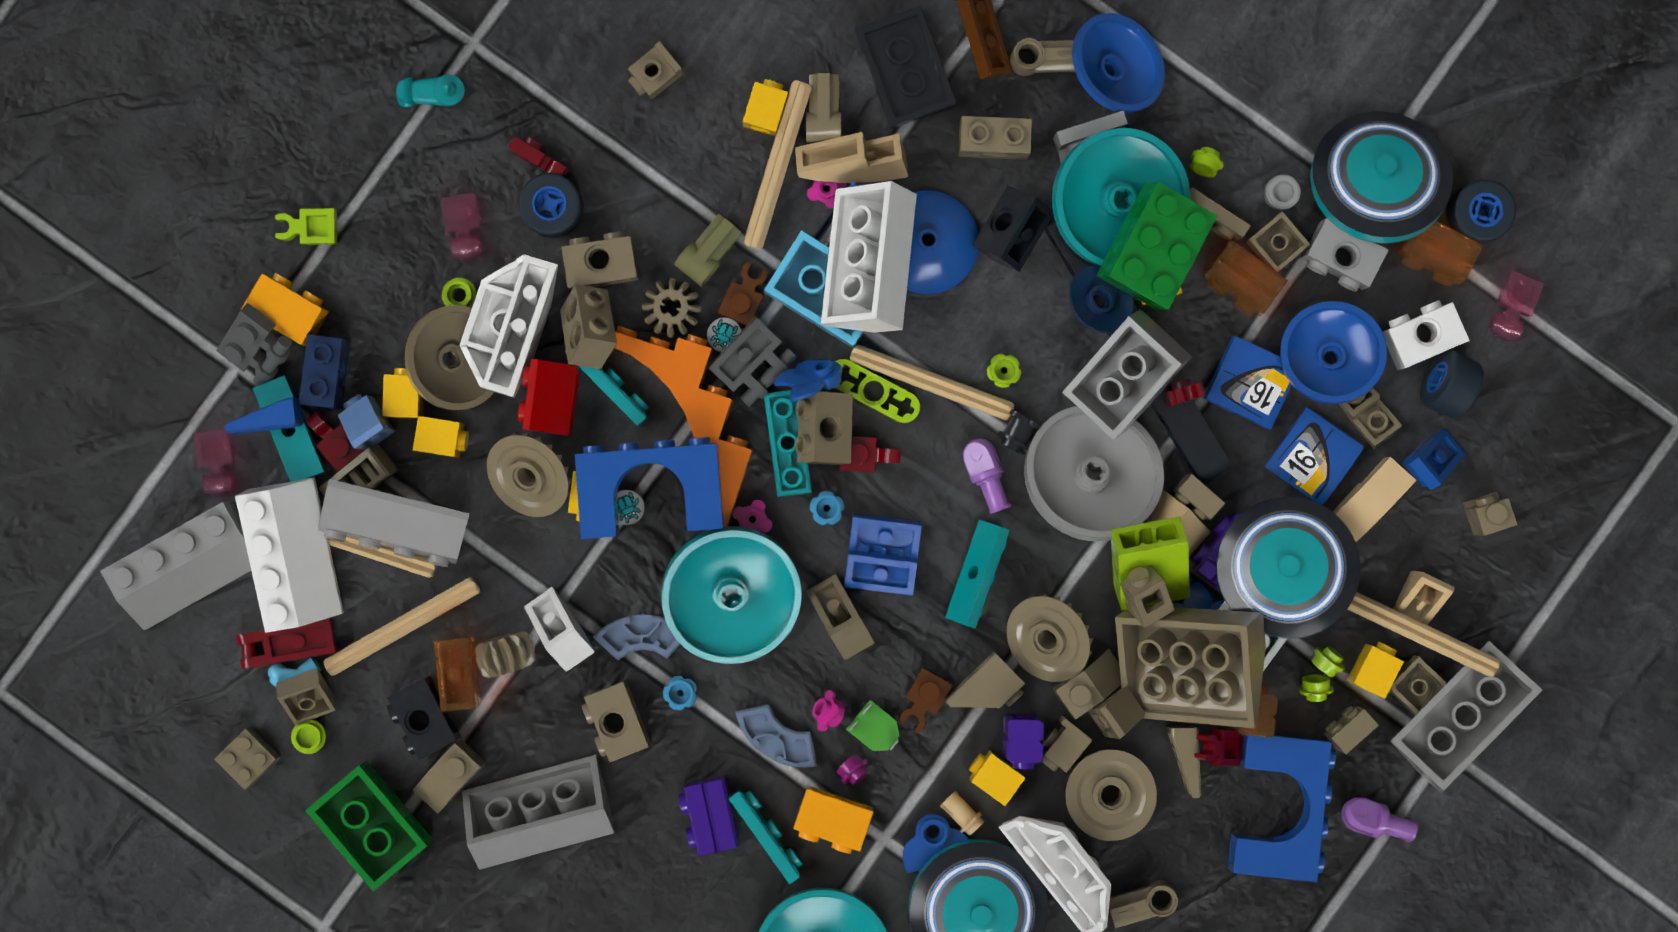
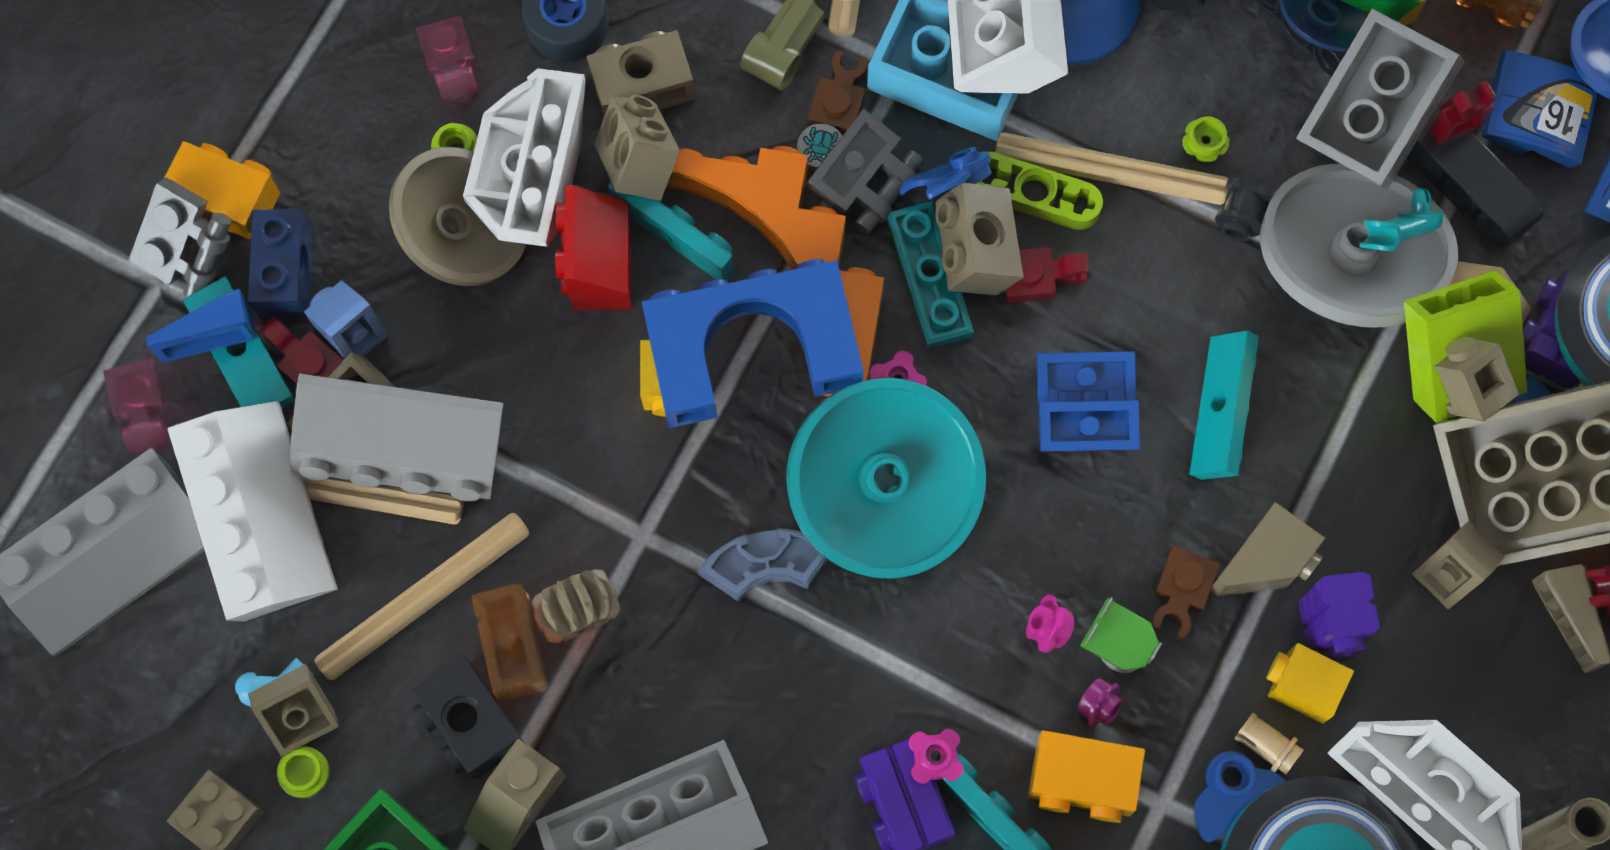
camera: 10 degrees left, 15 degrees down
(288, 644) = (260, 641): dark red plate -> none
(314, 227) = (250, 87): lime plate -> none
(400, 396) = (392, 282): yellow brick -> none
(440, 437) = (449, 328): yellow brick -> none
(528, 475) = (559, 373): dark tan gear -> none
(558, 629) = (649, 565): white slope -> none
(617, 700) = (746, 651): dark tan brick -> none
(630, 507) = (727, 388): tile -> none
(667, 318) = (750, 105): dark tan gear -> none
(679, 702) = (838, 619): dark azure plate -> none
(727, 788) = (925, 767): none -> dark pink plate
(775, 739) = (981, 680): sand blue tile -> none
(836, 506) = (1007, 342): dark azure plate -> none
(840, 617) = (1045, 491): dark tan slope -> none
(985, 470) = (1209, 271): medium lavender arm -> none
(1037, 649) = (1319, 491): dark tan gear -> none
(1064, 746) = (1400, 621): dark tan brick -> none
(1091, 685) = (1410, 536): dark tan slope -> none
(1111, 819) = (1505, 660): dark tan gear -> none
(1133, 466) = (1407, 225): none -> teal piece
(1197, 496) = (1510, 251): dark tan piece -> none

